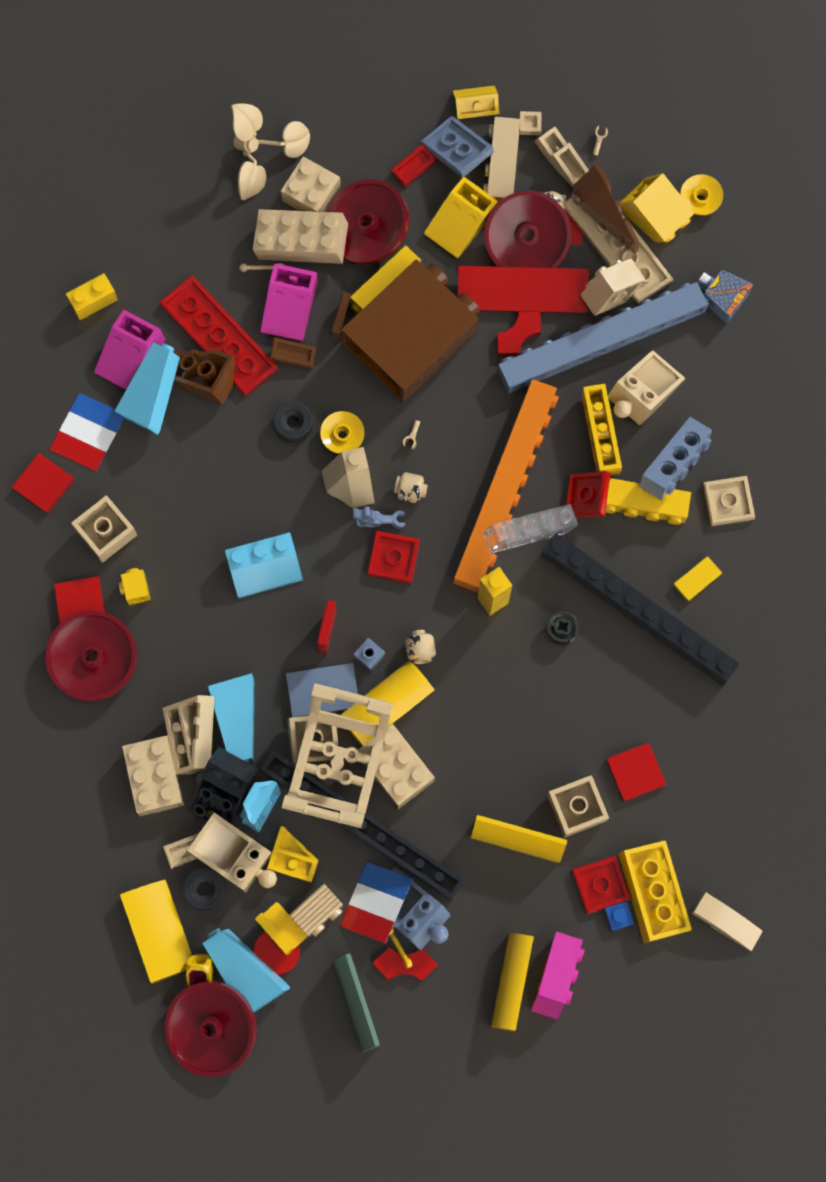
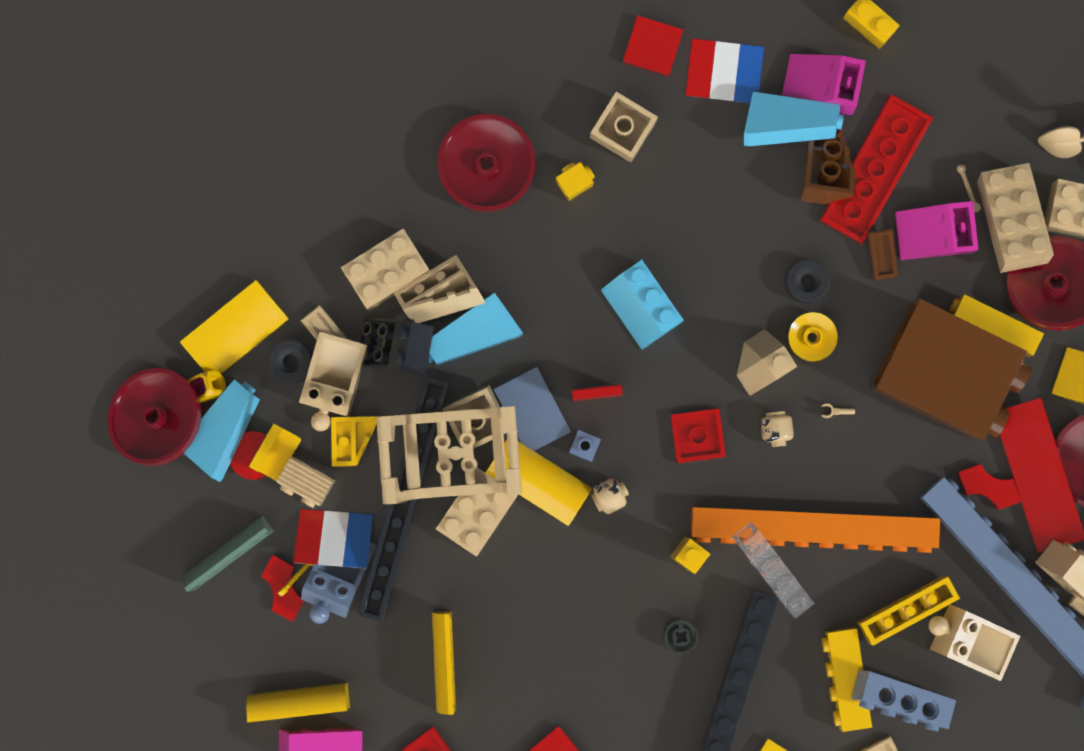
camera: 75 degrees right, 10 degrees up
(79, 597) = (544, 128): red tile -> none
(259, 804) = (390, 388): medium azure slope -> none
(341, 316) = (941, 291): reddish brown tile -> none
(374, 519) = (731, 404): sand blue piece -> none
(577, 806) = (497, 712): tan brick -> none
(588, 493) = (833, 618): red tile -> none

